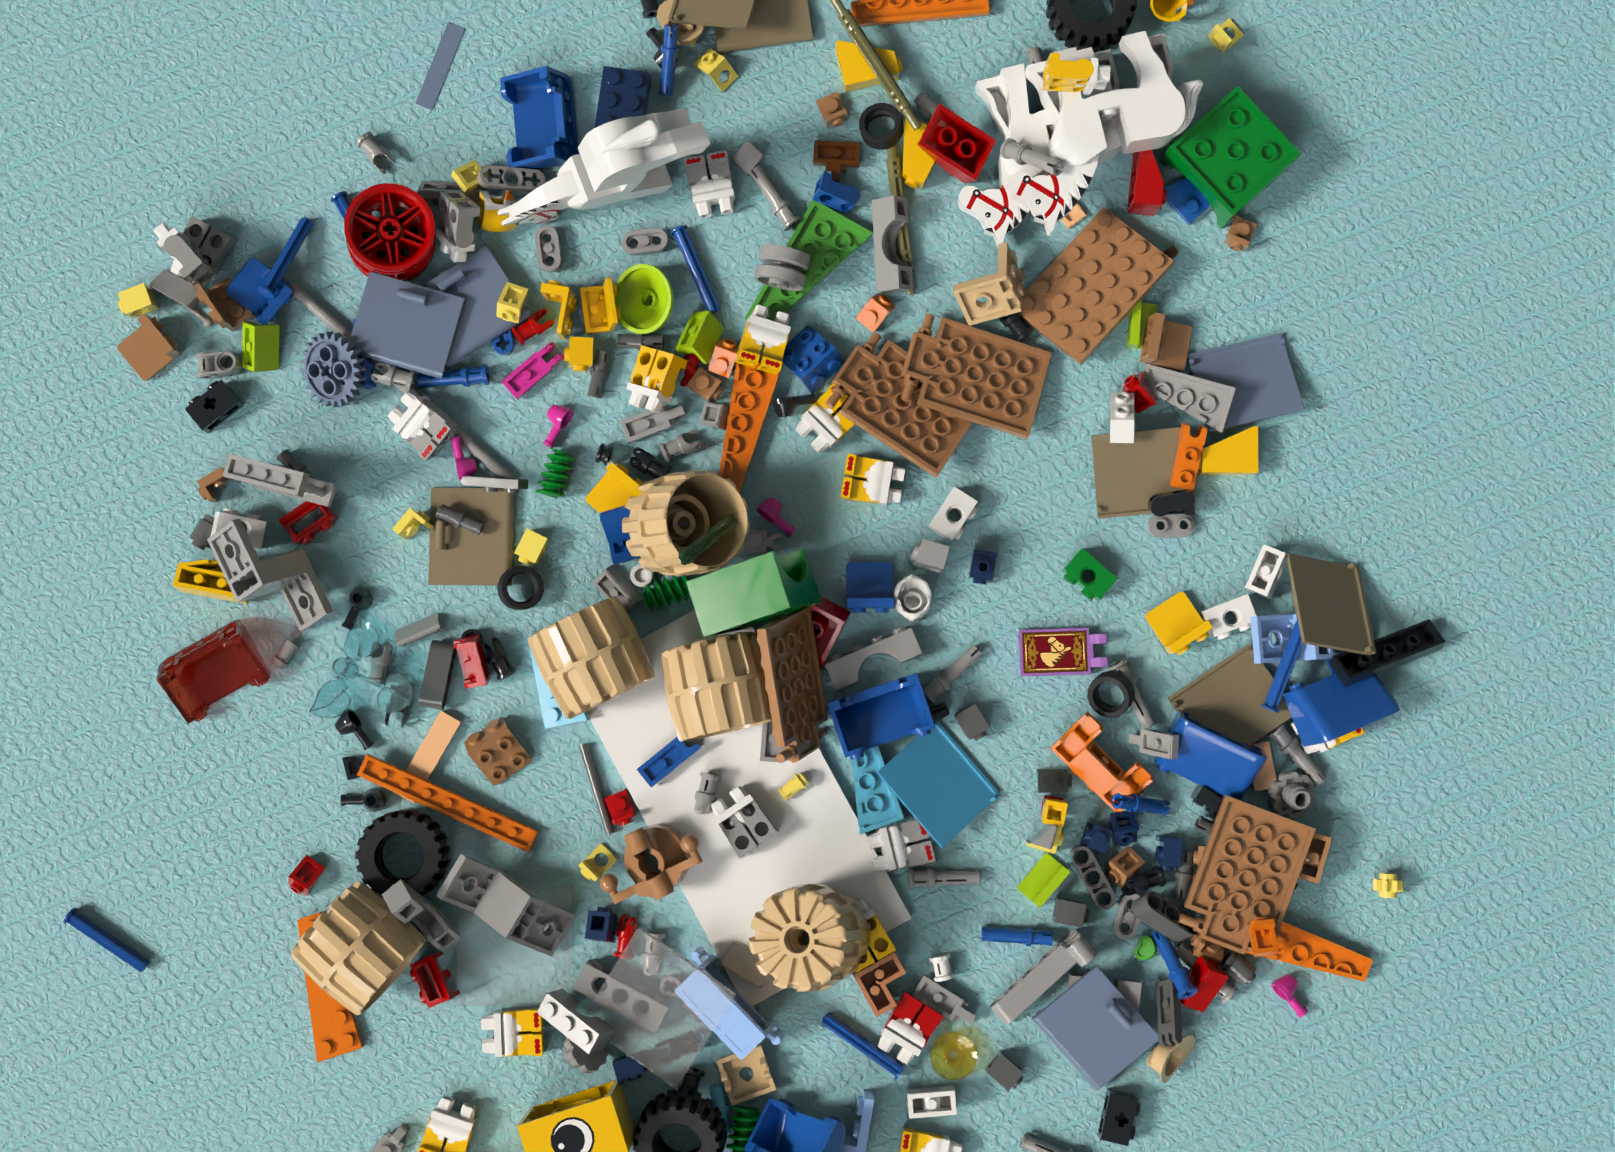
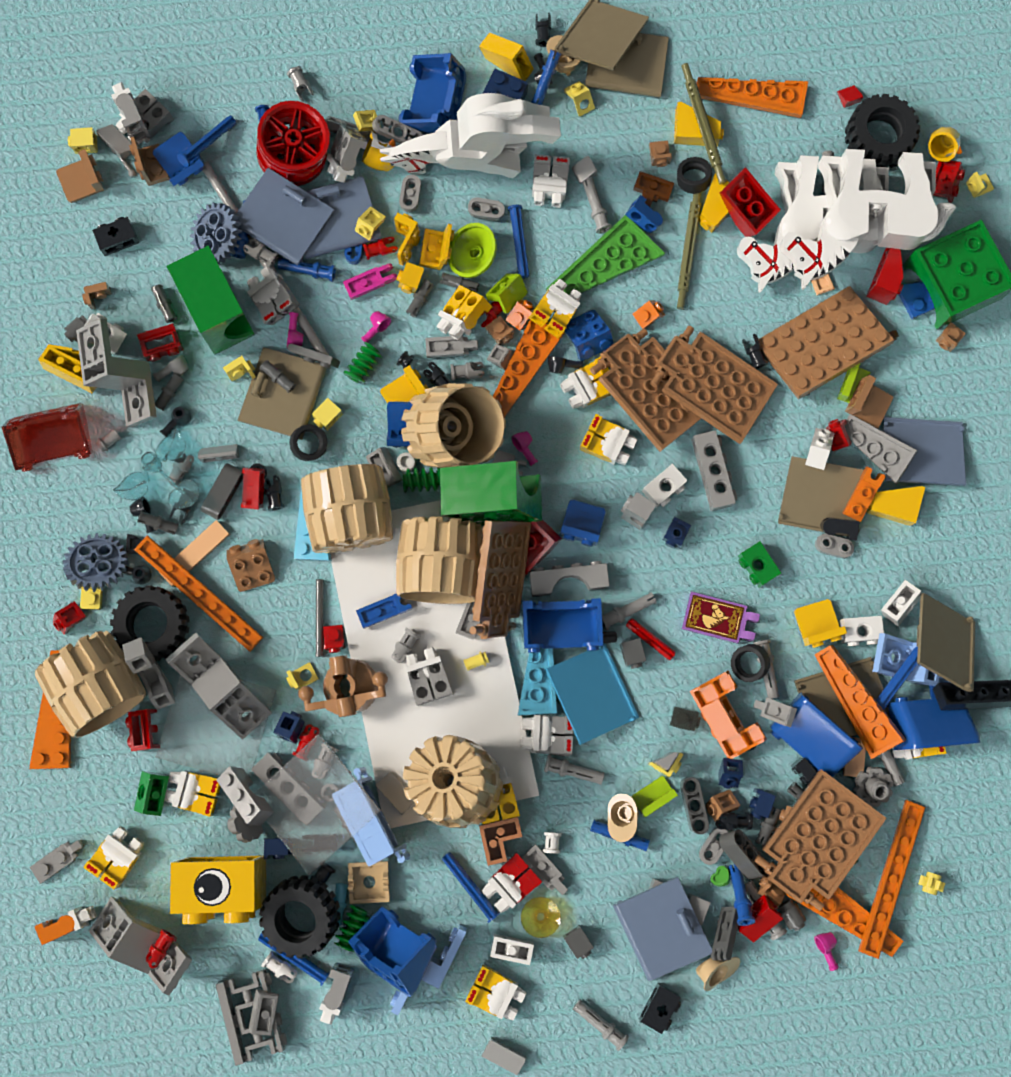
camera: 10 degrees right, 5 degrees down
(214, 365) = (125, 206): light grey piece -> none
(260, 347) = (166, 201): lime panel -> none
(279, 480) = (147, 302): light grey fence -> none
(312, 784) = (95, 562): none -> sand blue gear
(323, 842) = (90, 599): none -> light yellow bracket
(337, 575) = (168, 391): none -> dark grey pin
(338, 541) = (178, 366): none -> light grey bar
(353, 456) = (210, 300): none -> green container
(374, 734) = (157, 522): none -> dark grey pin
(440, 66) = (369, 36): sand blue sticker -> none
(466, 1049) = (151, 793): none -> green brick
(613, 44) = (507, 56): none -> yellow slope
(707, 539) = (467, 440): clear green axle -> none
(782, 267) = (587, 256): light grey wheel -> none
(888, 218) = (680, 244): light grey arch -> none
(912, 597) = (614, 541): white hair -> none
(925, 104) = (732, 168): light grey pin -> none
(988, 699) = (650, 639): none -> red axle
(1001, 288) = (754, 321): tan bracket -> none
(1014, 916) = (622, 817): none -> tan piece
(1017, 512) = (712, 441): none -> light grey brick
(1024, 155) = (801, 222): light grey pin -> none
(1045, 972) = (657, 860): light grey beam -> none
(1053, 810) = (678, 741): yellow leg -> none
(1070, 912) = (668, 828): dark grey brick -> none
(1074, 75) = (859, 168): yellow hips -> none
(1096, 837) = (706, 774): dark blue brick -> none
(1135, 803) = (746, 755): blue pin -> none
(1184, 41) = (948, 179): none -> red bracket
(1259, 715) = (865, 713): none -> orange wing
(1263, 937) = (820, 892): orange bracket -> none
(1315, 859) = (878, 844): medium nougat brick -> none
(1341, 893) = (891, 879): none -> orange tile

